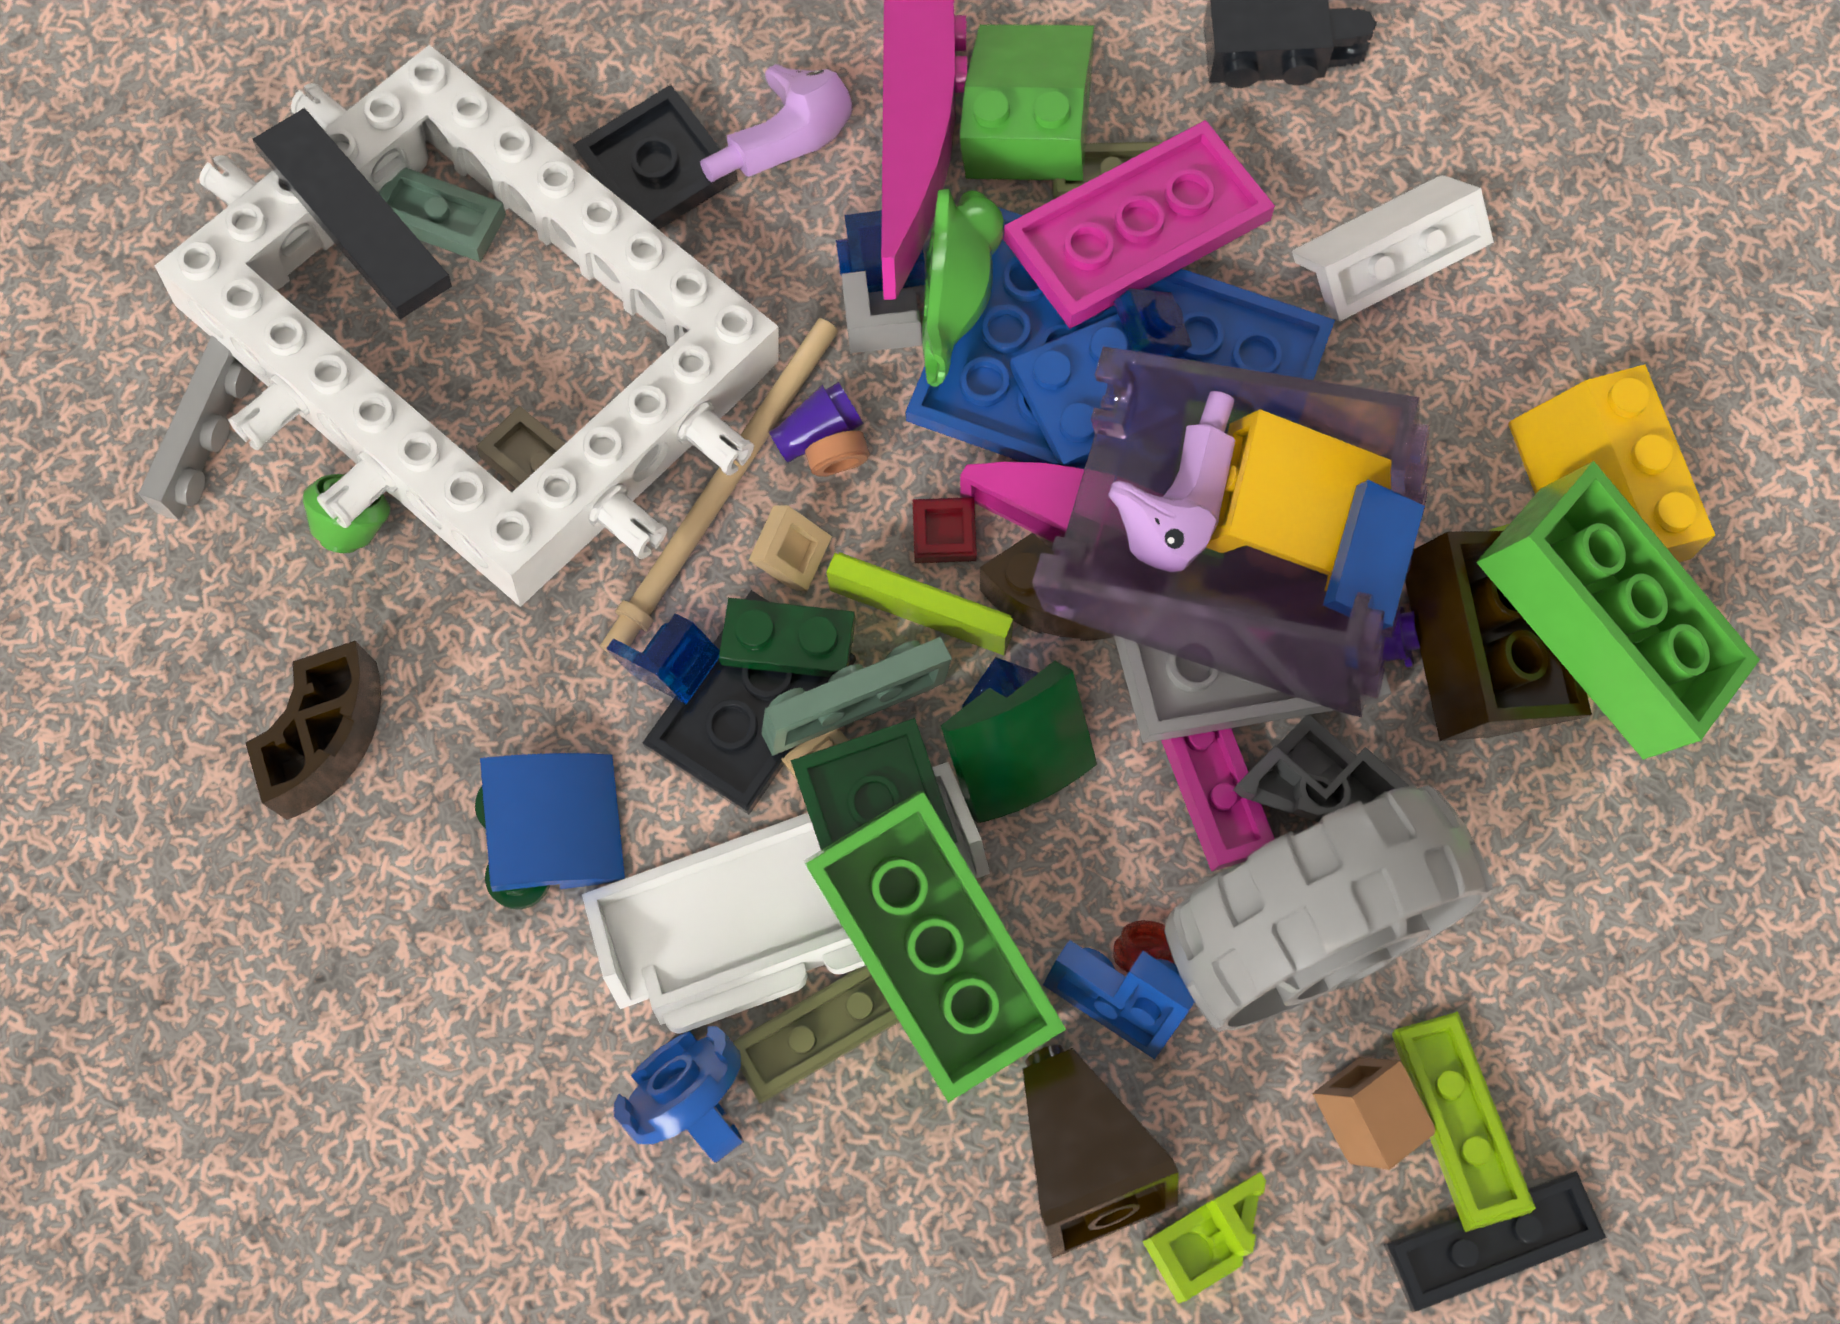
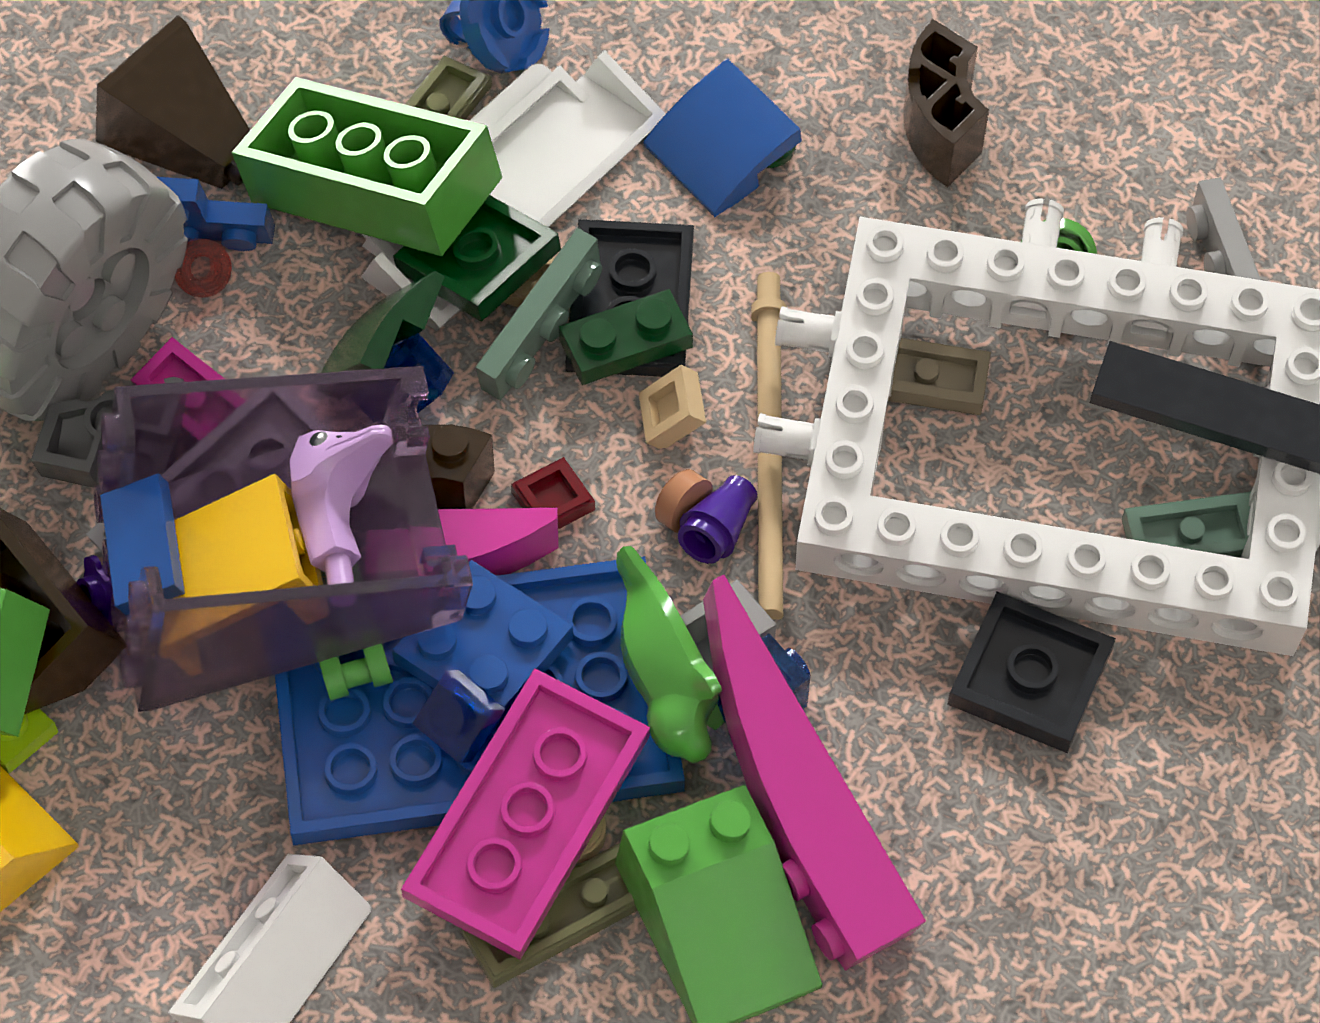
camera: 145 degrees right, 15 degrees down
(673, 659) = (713, 275): clear blue panel -> none
(811, 117) = (916, 783): lavender animal -> none
(920, 603) = (542, 413): lime tile -> none
(1208, 1240) = (63, 115): lime slope -> none

